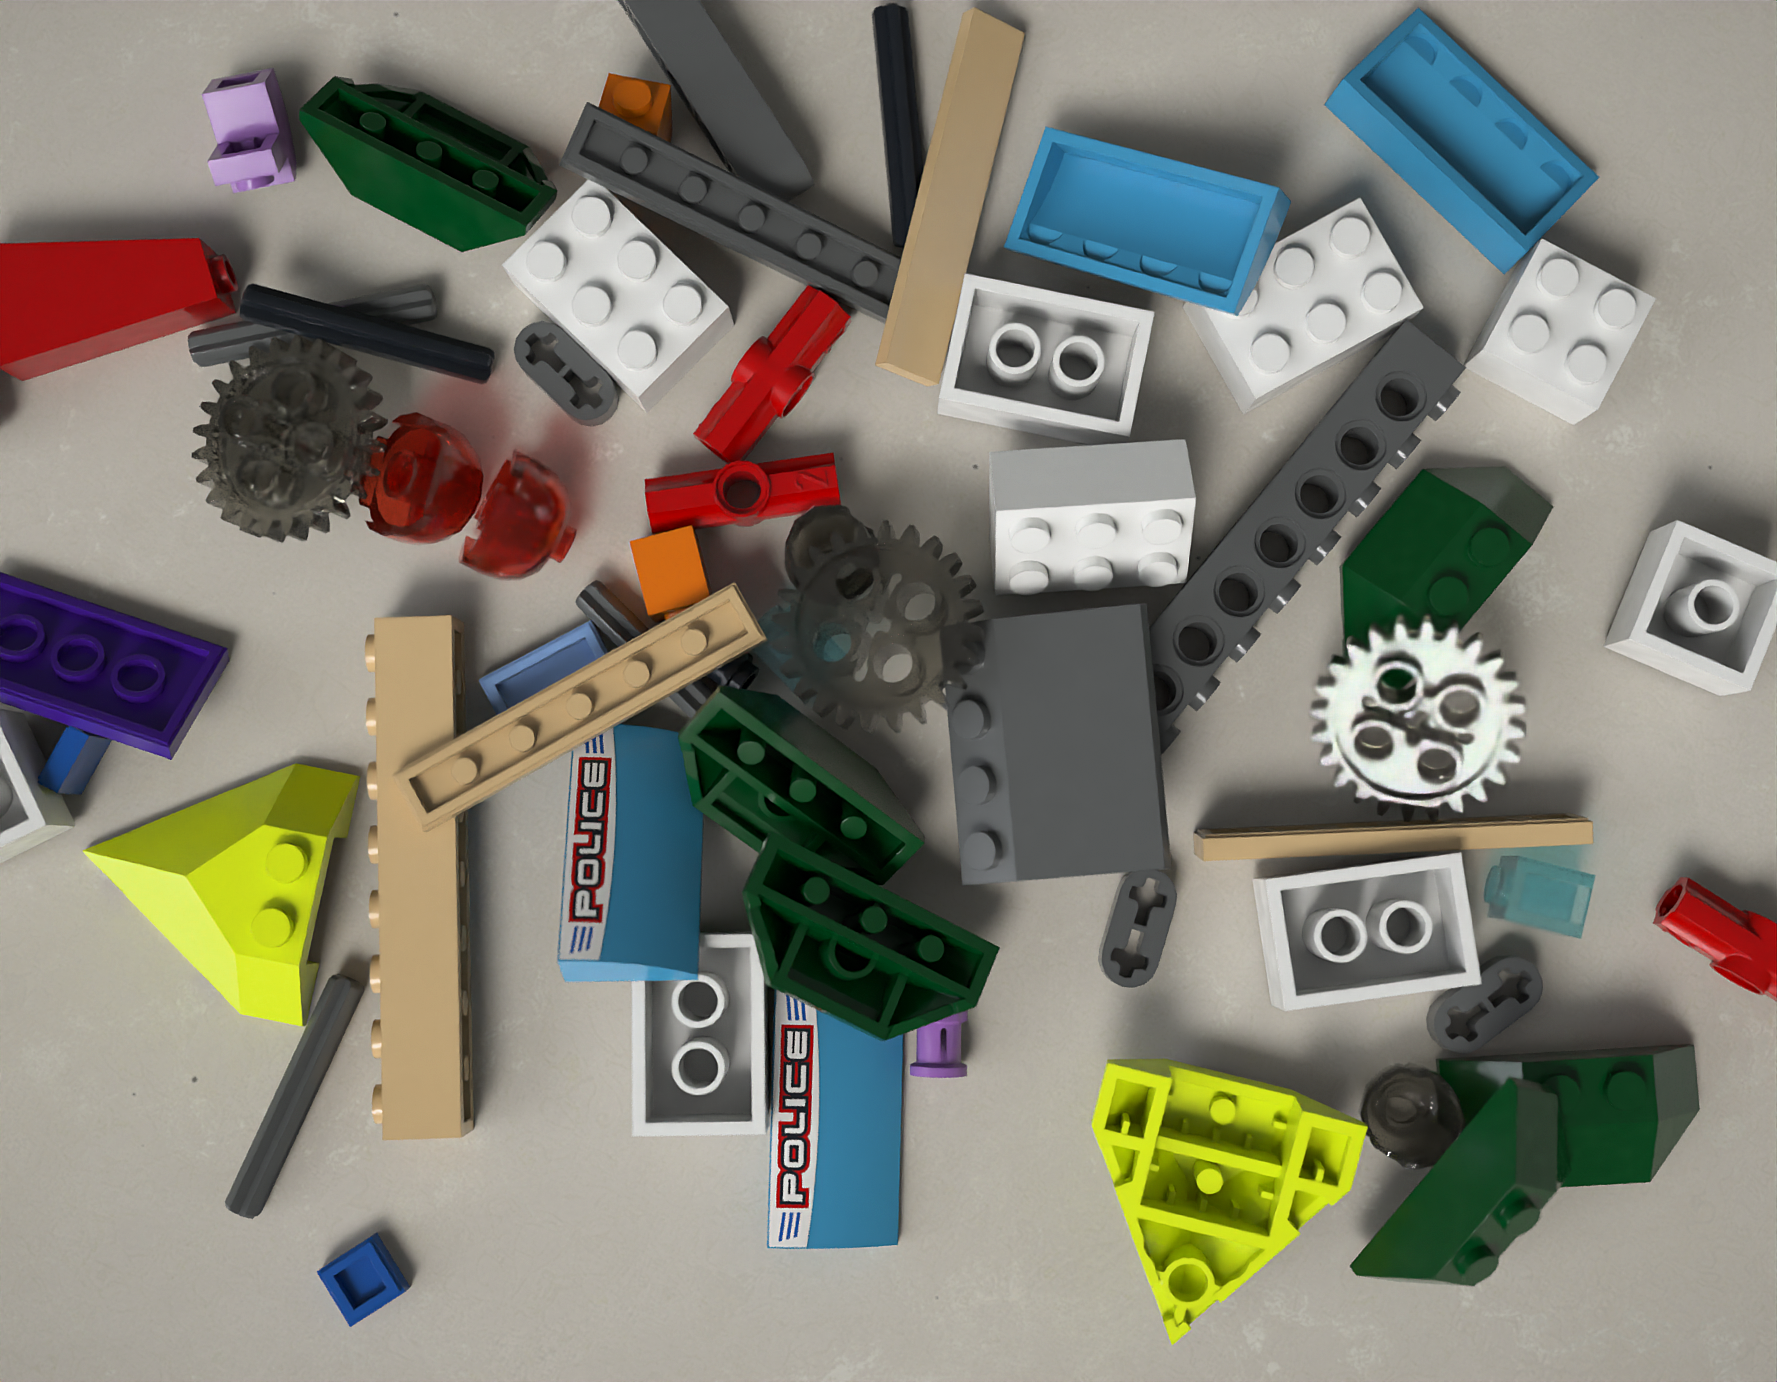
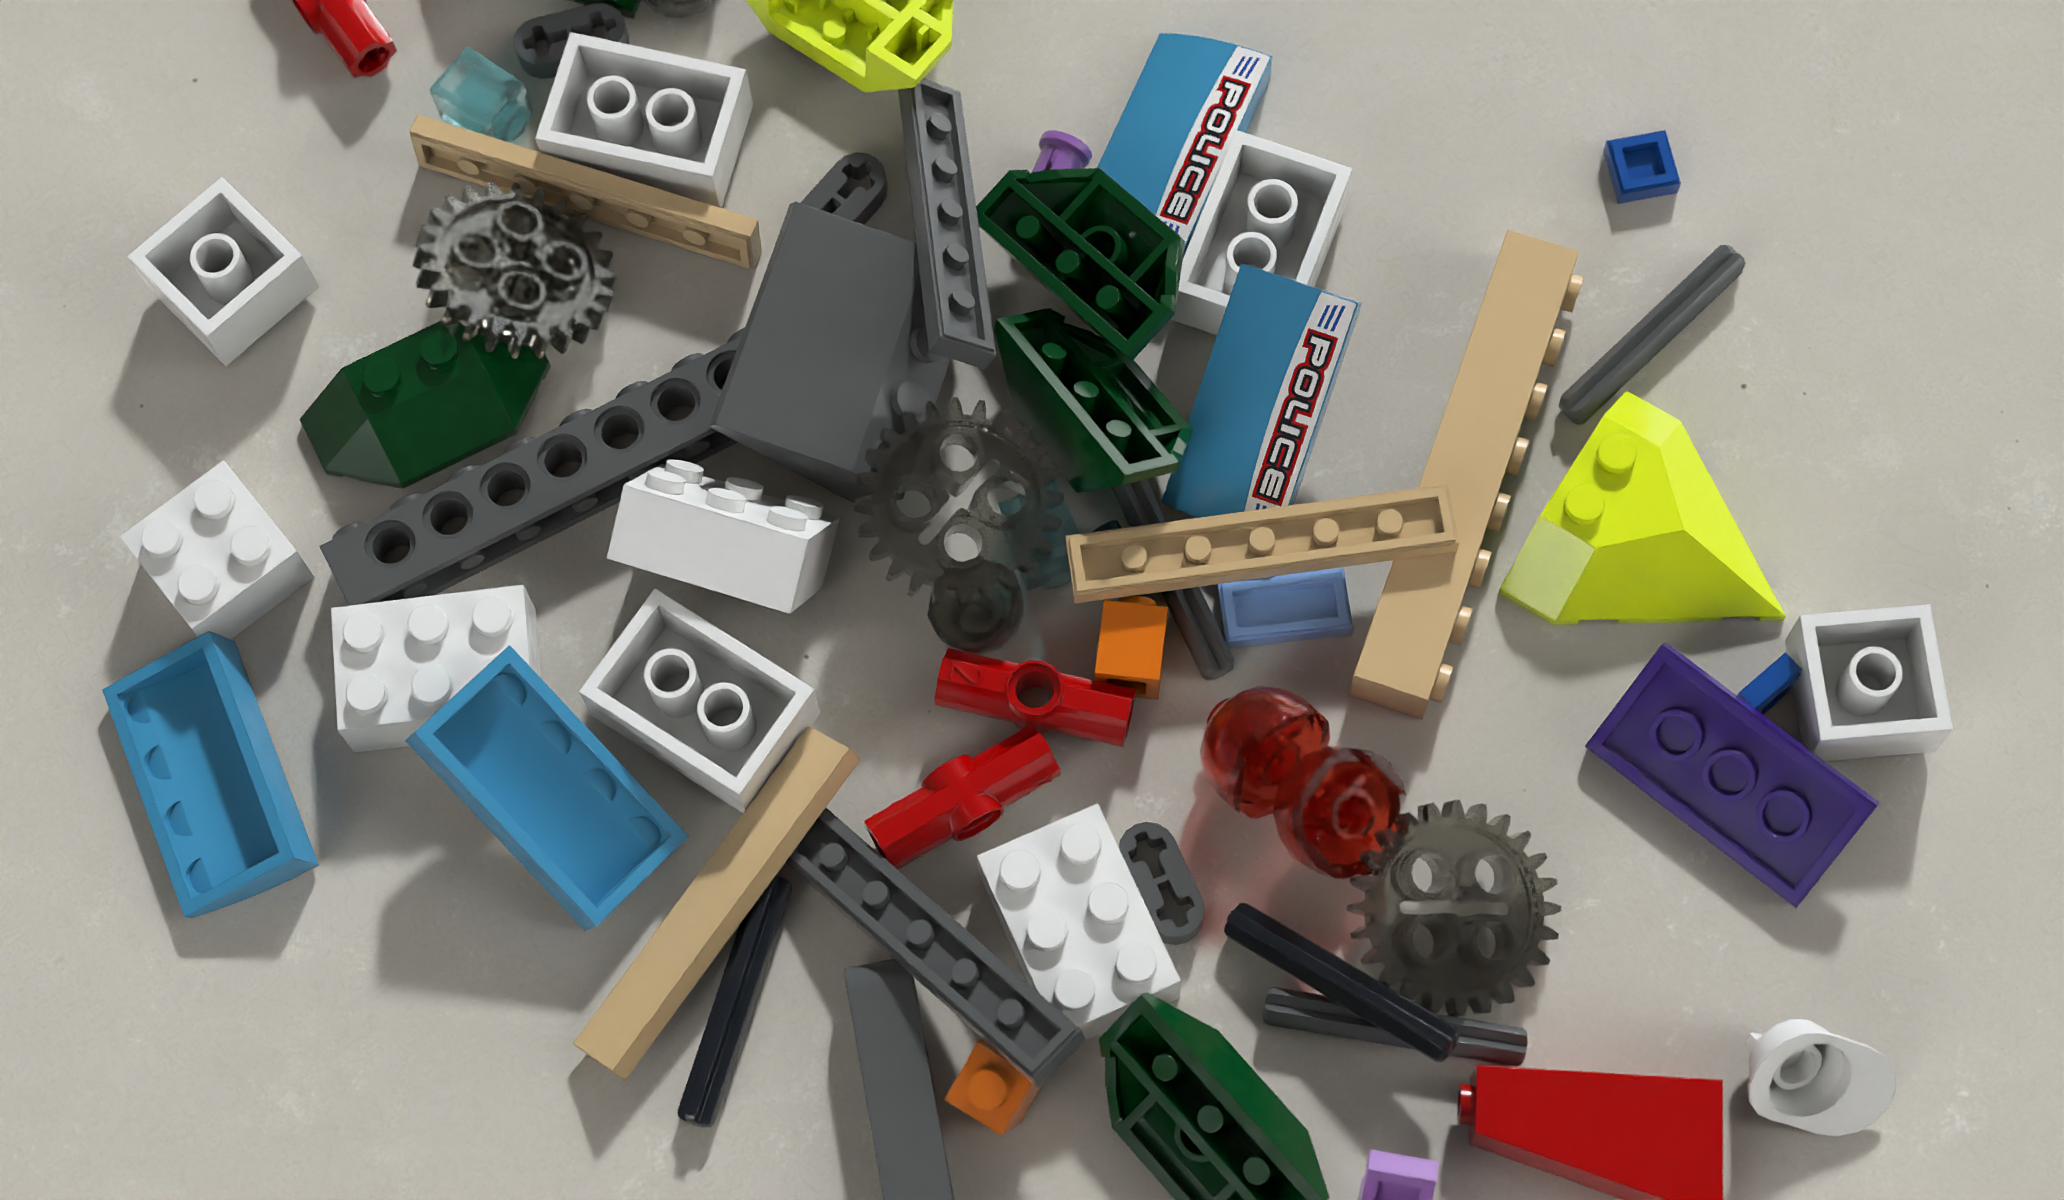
camera: 155 degrees left, 15 degrees down
(1010, 916) = (946, 225): none -> dark grey tile

